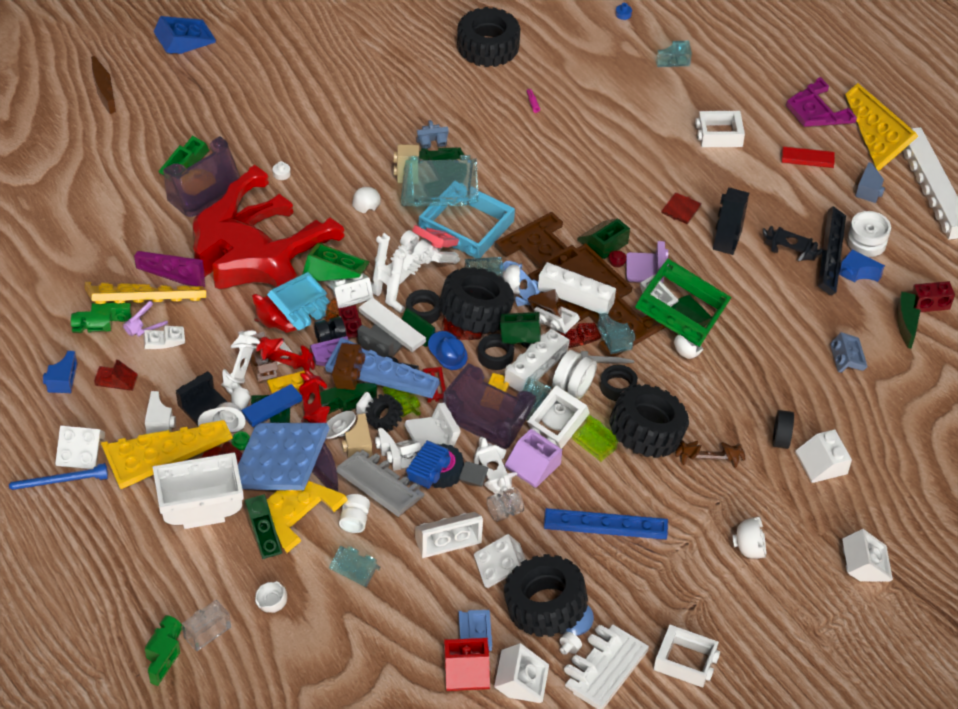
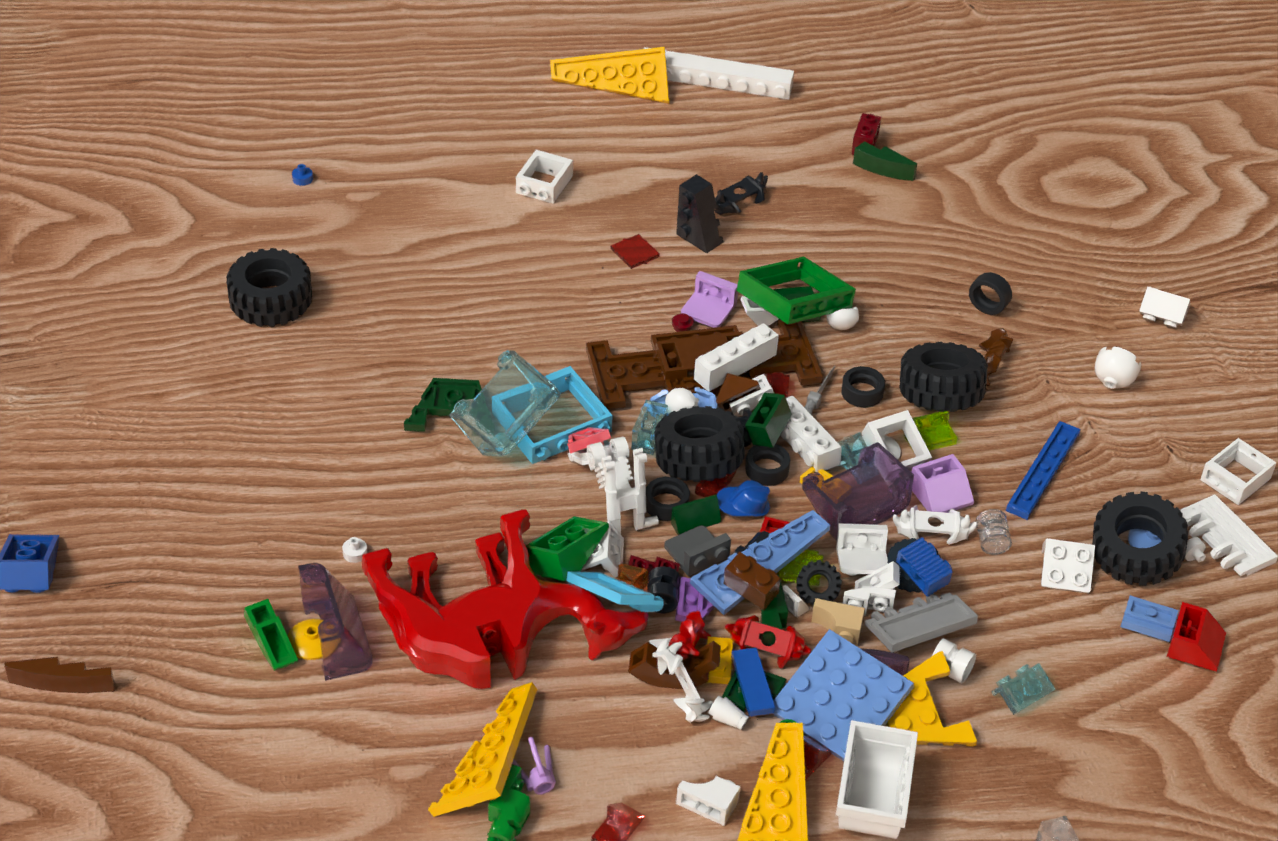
camera: 65 degrees left, 5 degrees down
(170, 337) = (575, 756): white slope -> none
(175, 268) = (469, 705): magenta wing -> none
(198, 396) = (711, 748): black bracket -> none
(225, 411) = (753, 731): white piece -> none
(262, 526) = (939, 753): dark green slope -> none
(271, 597) = (1044, 775): white hair -> none
(340, 424) = (814, 620): white dish -> none
(365, 199) = (459, 489): white hair -> none
(392, 324) = (682, 532): white tile -> none
(403, 154) = (438, 427): tan brick -> none
(432, 133) = (386, 391): sand blue hips -> none
(449, 534) = (1014, 588): white slope -> none
(473, 474) = (942, 540): dark grey slope -> none
(521, 674) = (1221, 602): white slope -> none
(533, 101) = (392, 296): dark pink piece -> none
(574, 374) = (846, 409): white wheel -> none
(606, 237) = (650, 315): dark green slope -> none
(616, 335) = (804, 359): clear light blue arch -> none
(676, 55) = (407, 161): clear light blue arch -> none
(808, 157) = (622, 138): red tile -> none
(813, 111) = (556, 107): magenta wing -> none
(824, 457) = (1032, 283): white slope -> none
(832, 251) = (774, 177): black plate -> none
(848, 352) = (905, 218): sand blue bracket -> none
(858, 266) = (797, 164): blue arch -> none
(869, 233) = (763, 138): white wheel -> none
(870, 184) = (691, 112): sand blue slope -> none

